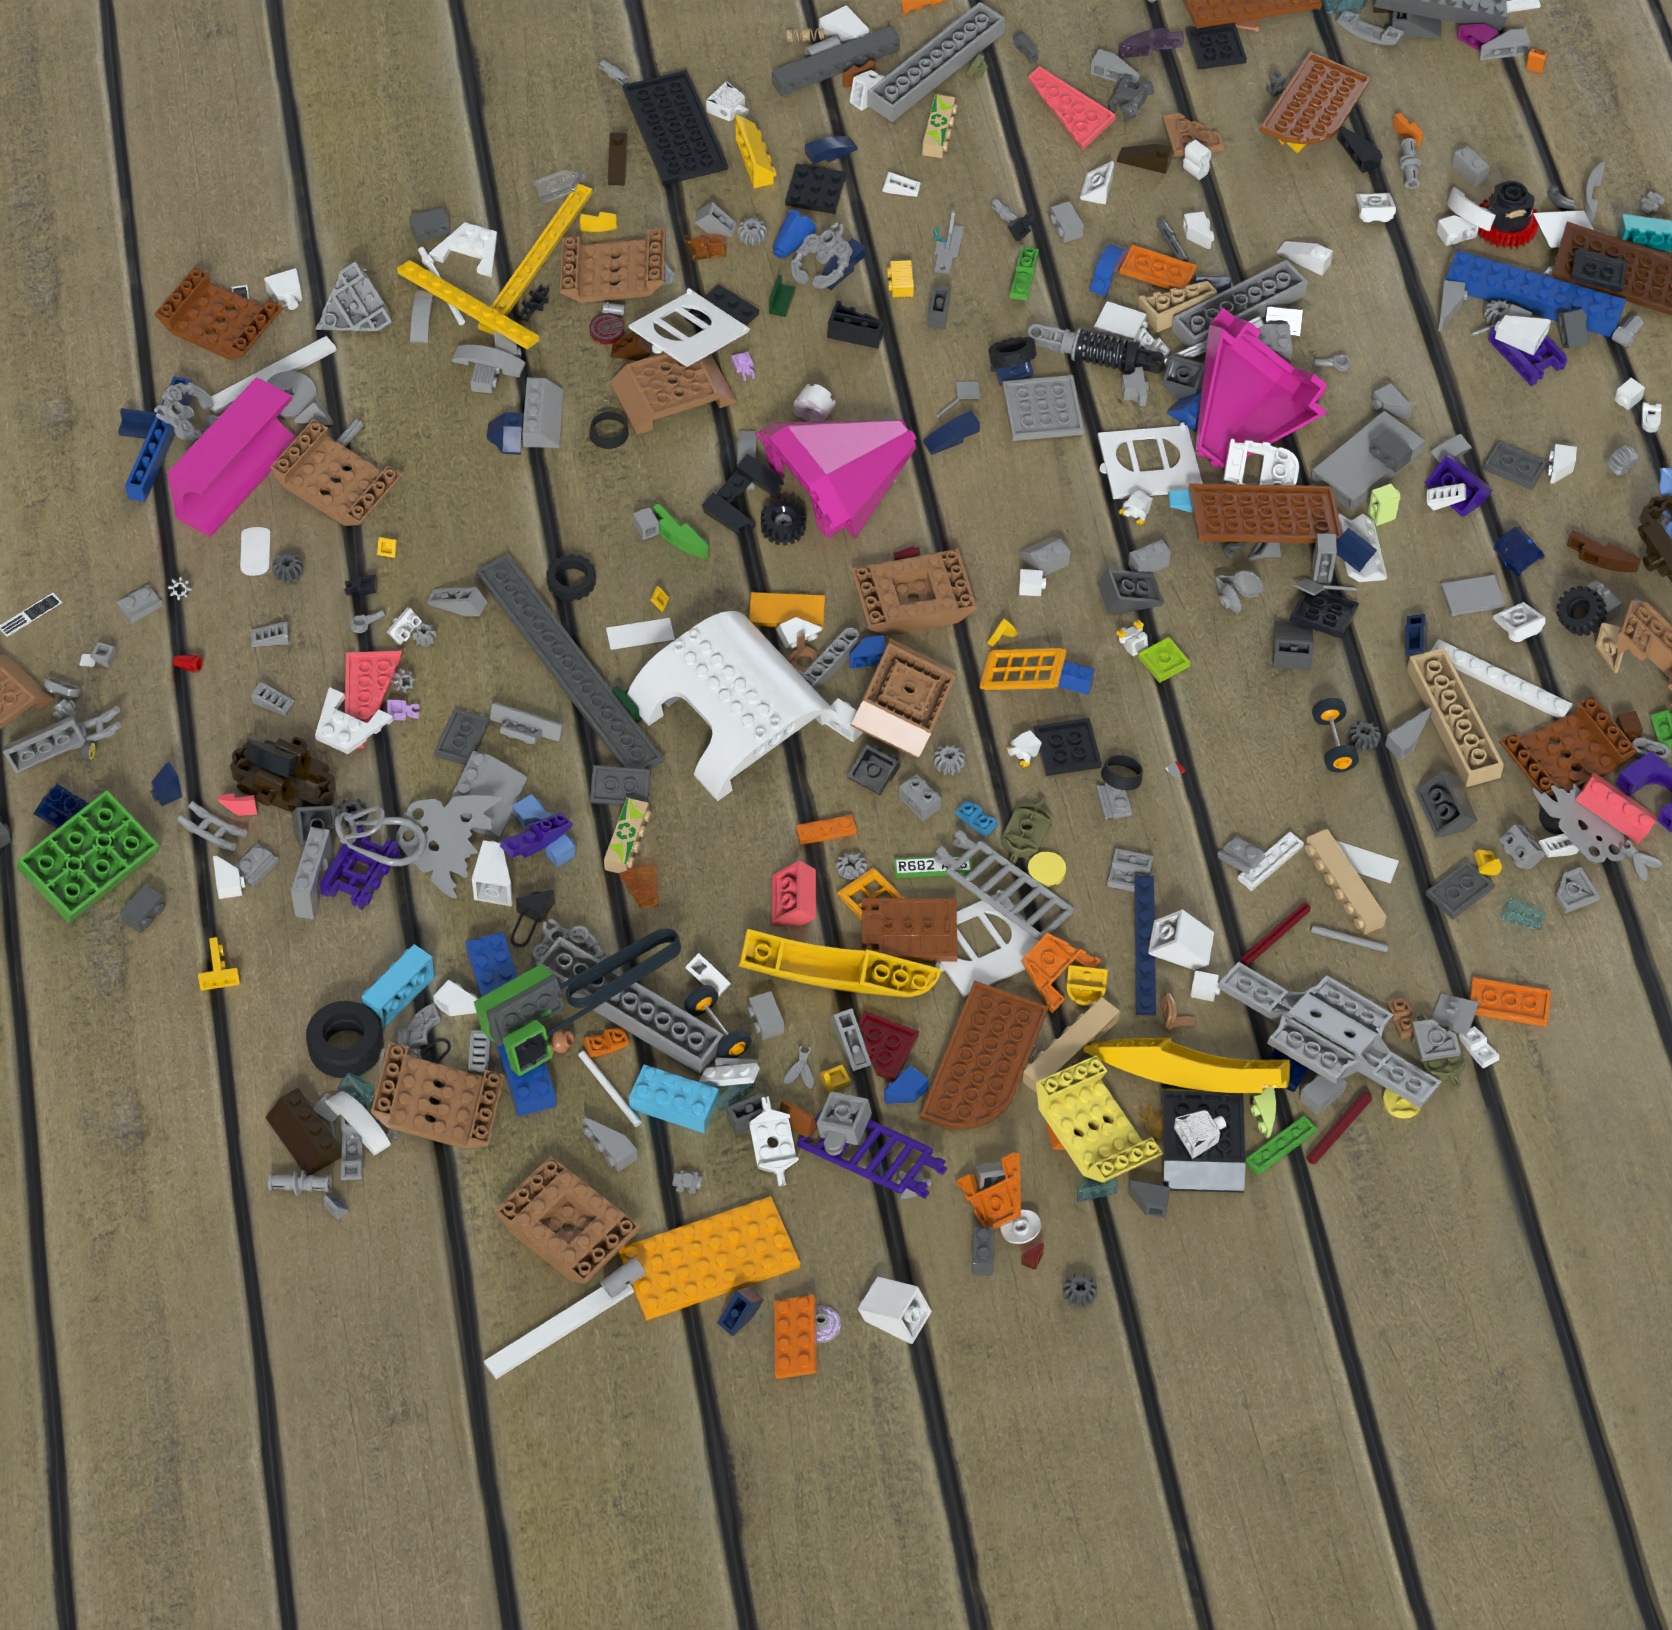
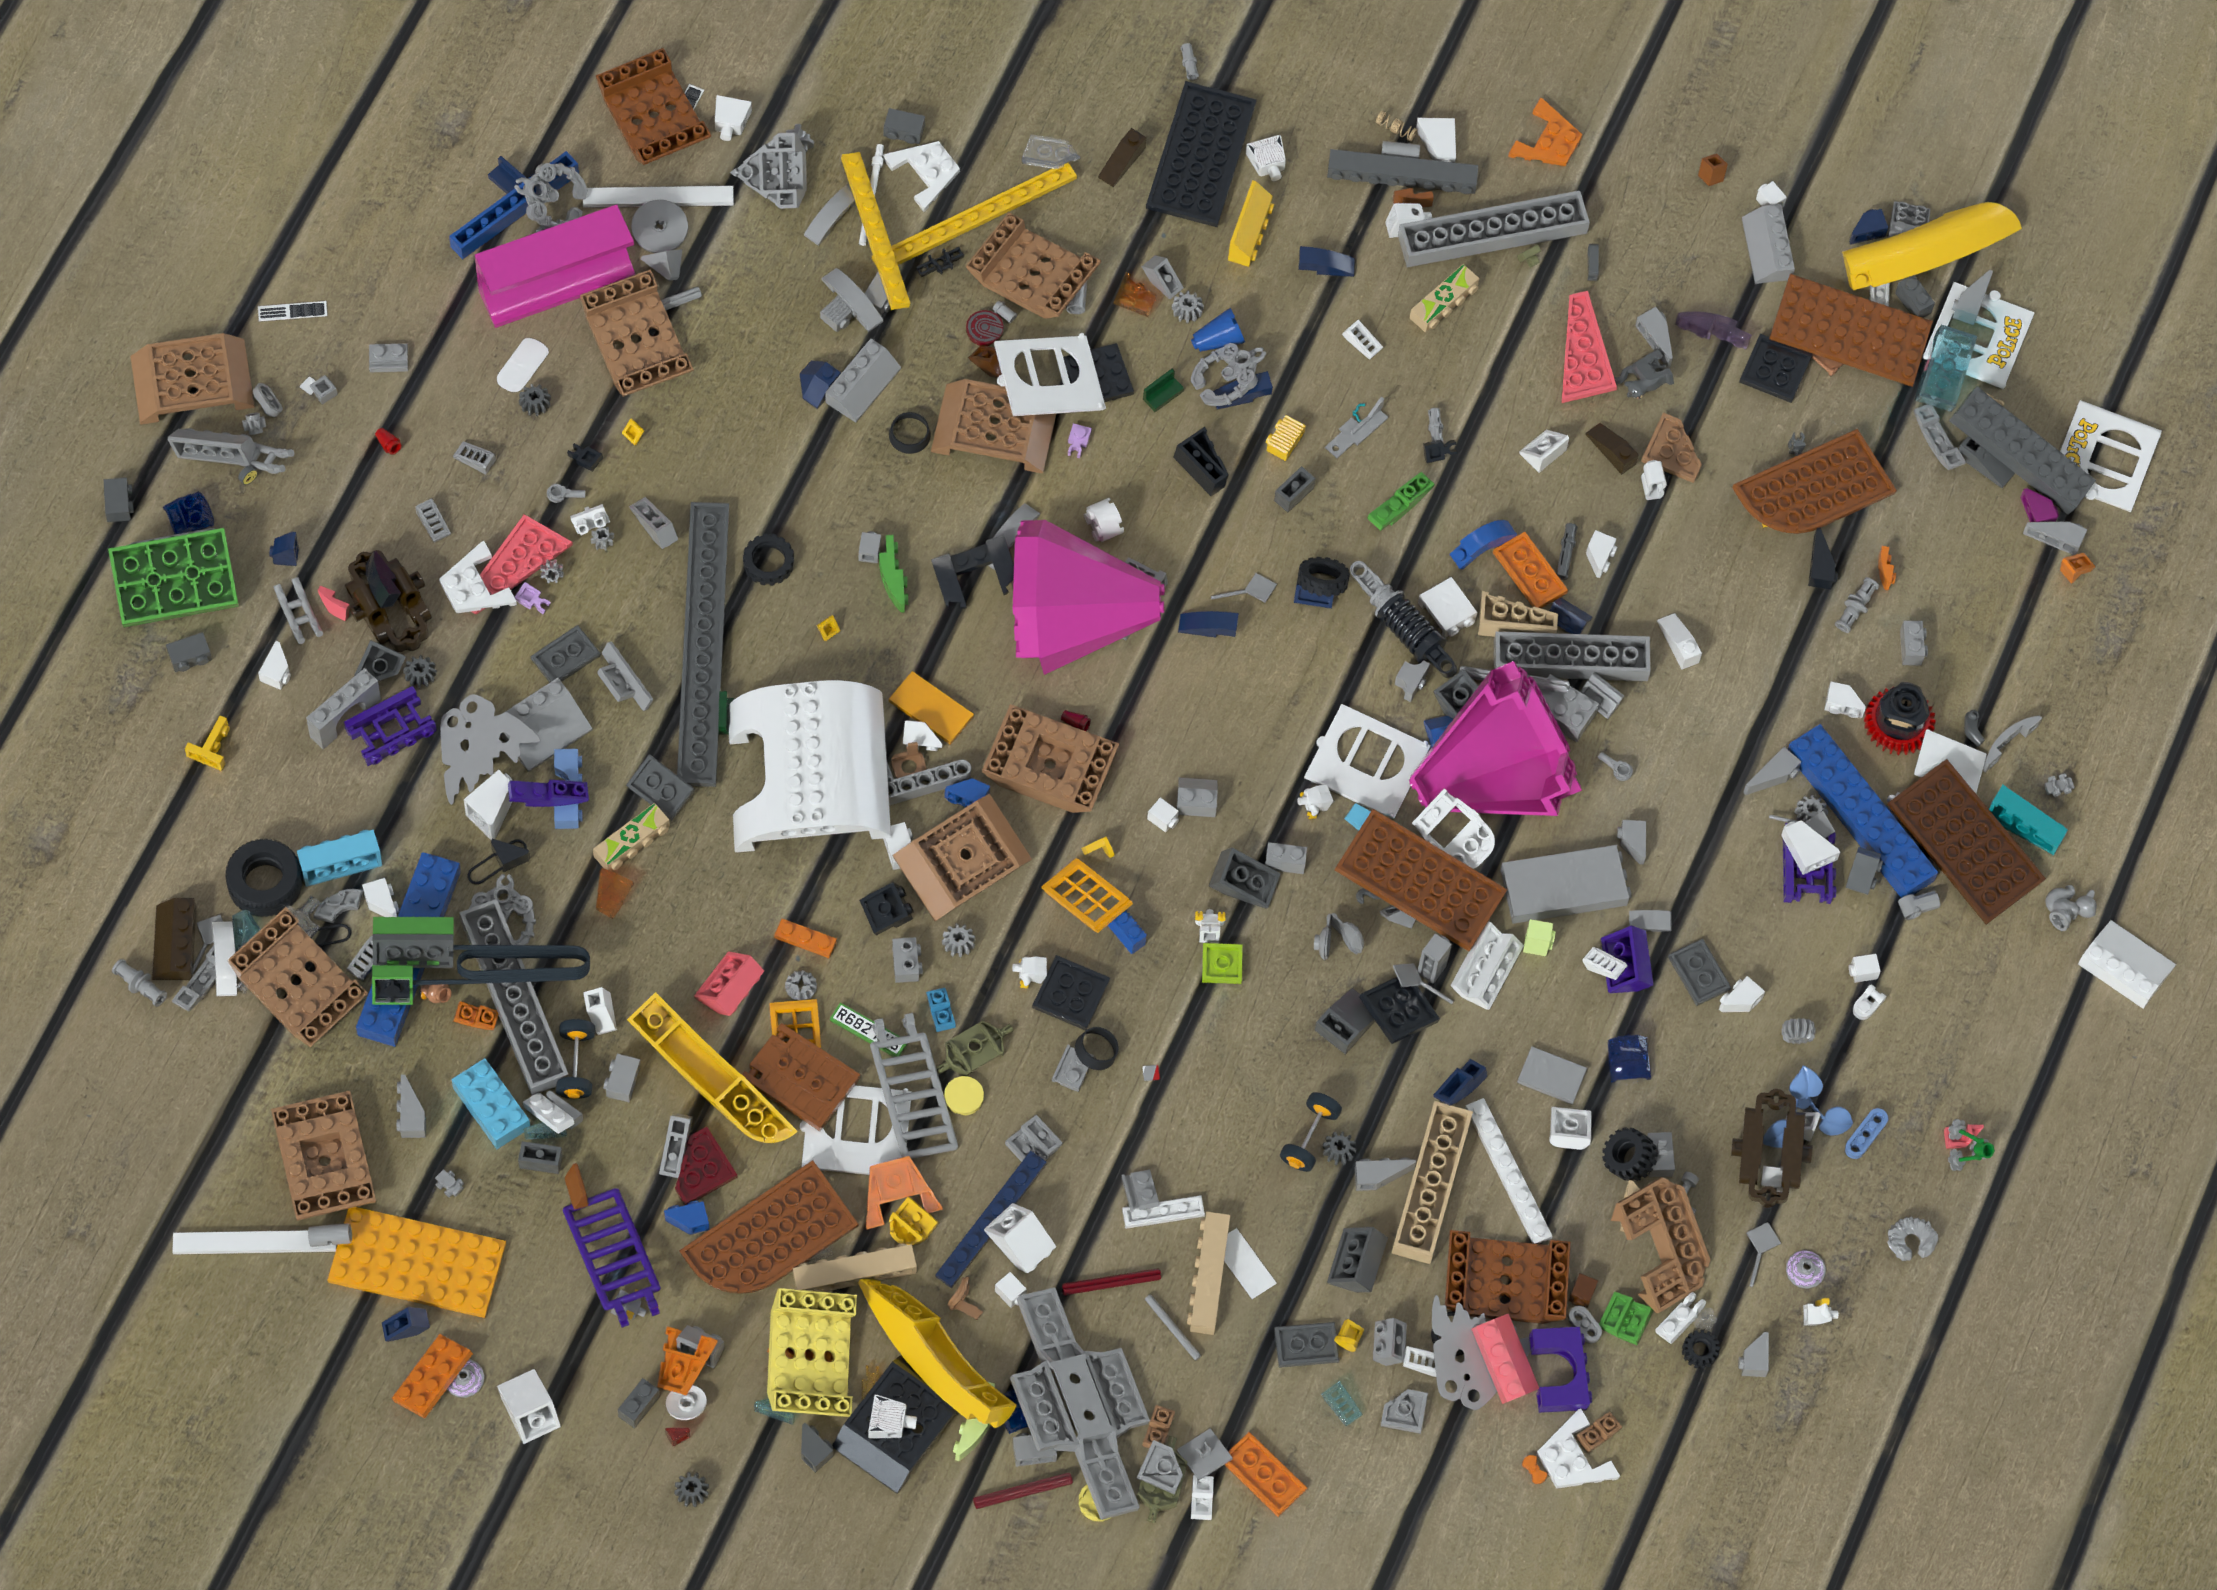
camera: 30 degrees right, 10 degrees up
(183, 591) = (426, 360): light grey gear -> none
(256, 864) = (309, 669): light grey plate -> none
(334, 1206) = (154, 1021): light grey slope -> none
(378, 823) = (428, 693): light grey animal -> none
(603, 222) = (1060, 216): yellow slope -> none
(609, 1088) = (448, 1059): white piece -> none
(640, 633) = (789, 650): white sticker -> none
(775, 1125) = (530, 1209): white plate -> none
(780, 512) = (991, 608): black bush -> none
(802, 1068) = (617, 1143): light grey piece -> none
(815, 188) = (1282, 295): black plate -> none
(834, 1078) = (637, 1170): yellow tile -> none
(843, 1121) = (606, 1215): light grey brick -> none
(1042, 408) = (1311, 648): light grey plate -> none
(1066, 222) = (1483, 470): light grey brick -> none
(1149, 343) = (1458, 646): white slope -> none
(1281, 1145) = (961, 1473): bright green tile -> none
(1354, 549) = (1469, 966): dark blue panel -> none
(1375, 207) = (1786, 629): white slope -> none
(1390, 451) = (1583, 890): dark grey brick -> none
(1469, 210) = (1867, 703): white slope -> none
(1598, 270) = (1932, 827): black plate -> none
(1607, 557) = (1706, 1117): reddish brown slope -> none
(1640, 860) = (1487, 1419): light grey piece -> none

